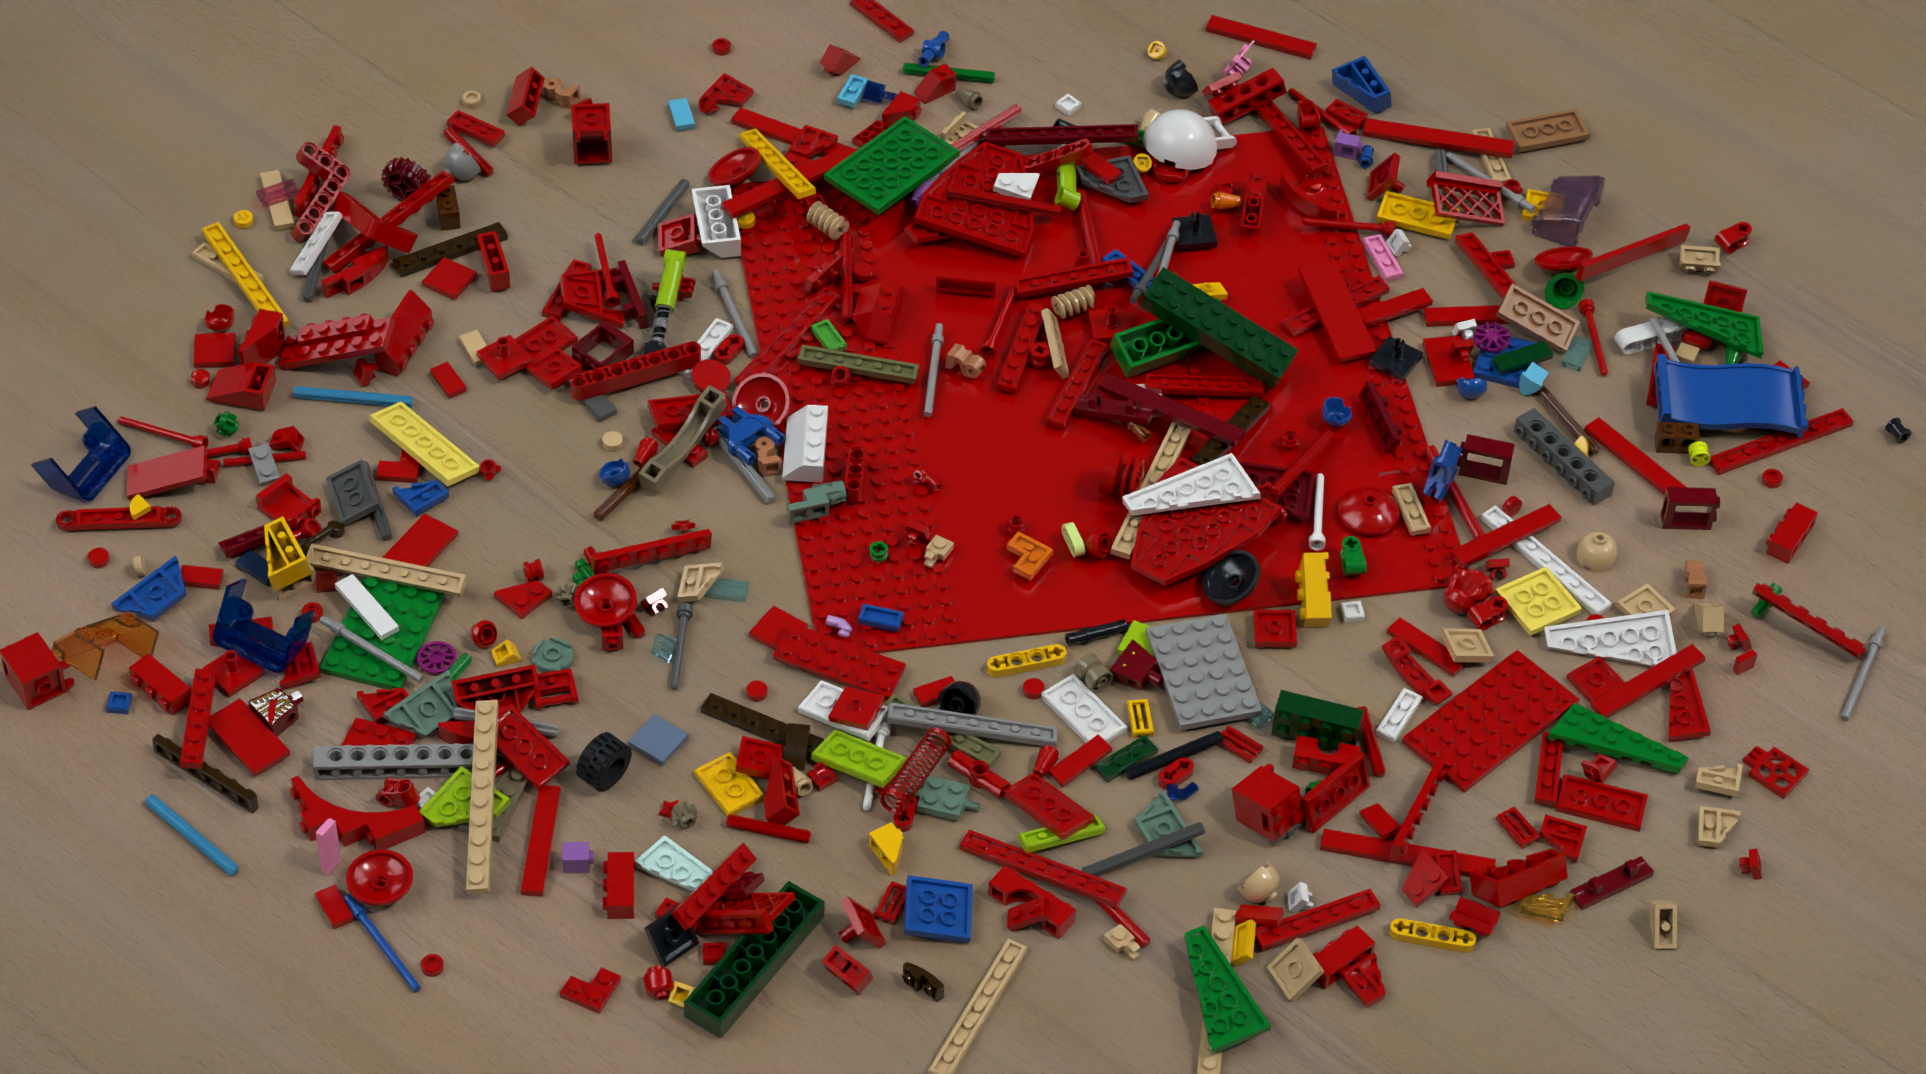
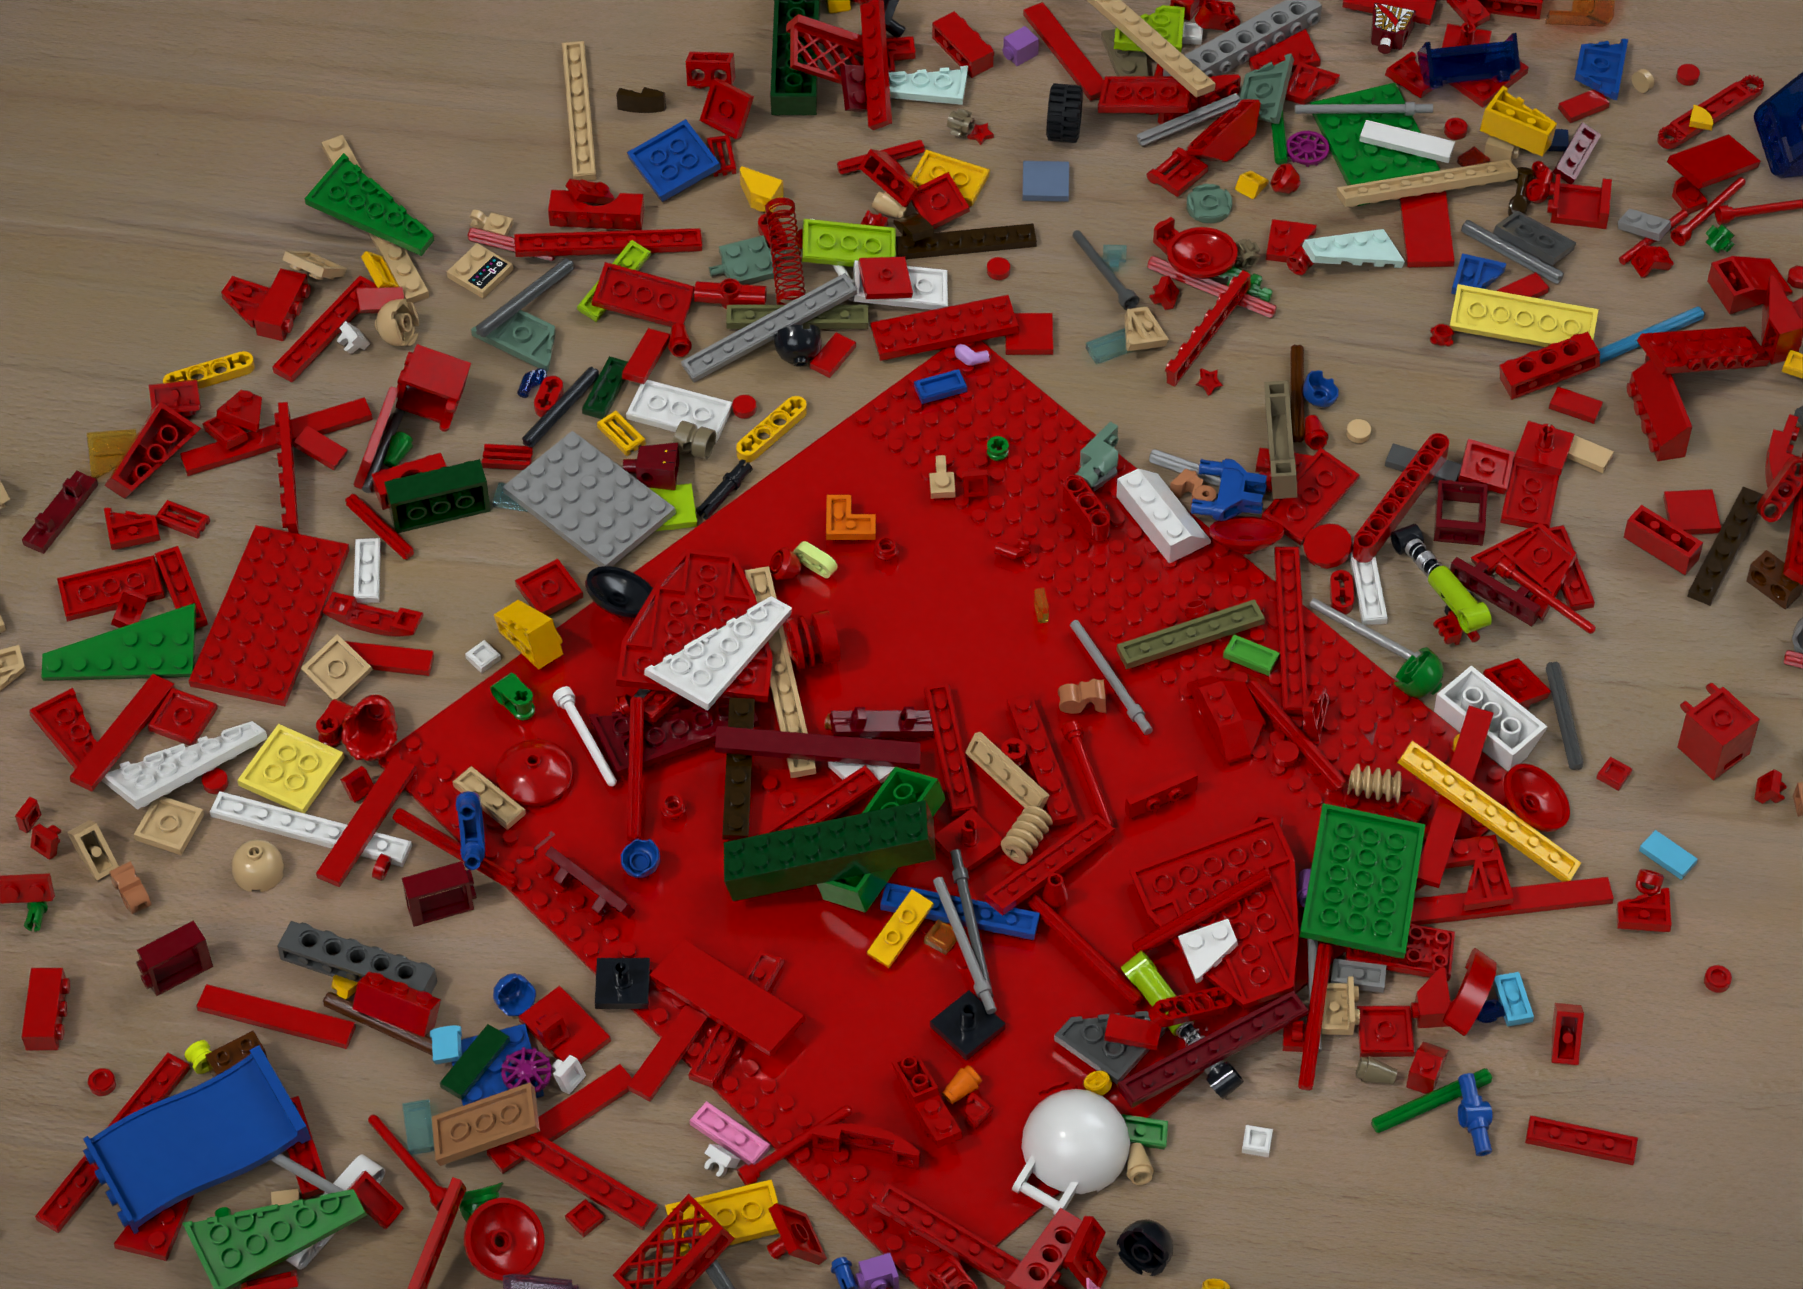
camera: 150 degrees right, 5 degrees up
(443, 401) = (1549, 365): none -> red brick
(485, 552) = (1354, 248): none -> light aqua wing
(665, 169) = (1614, 773): none -> red tile
(735, 267) = (1421, 674): none -> green cylinder
(856, 111) = (1472, 992): none -> red slope
(938, 115) = (1385, 1031): none -> red tile
(942, 429) = (1041, 605): none -> tile
(1159, 908) = (480, 270): none -> tan plate
(1554, 412) = (396, 1004): none -> red brick
(1631, 319) = (376, 1200): none -> red tile

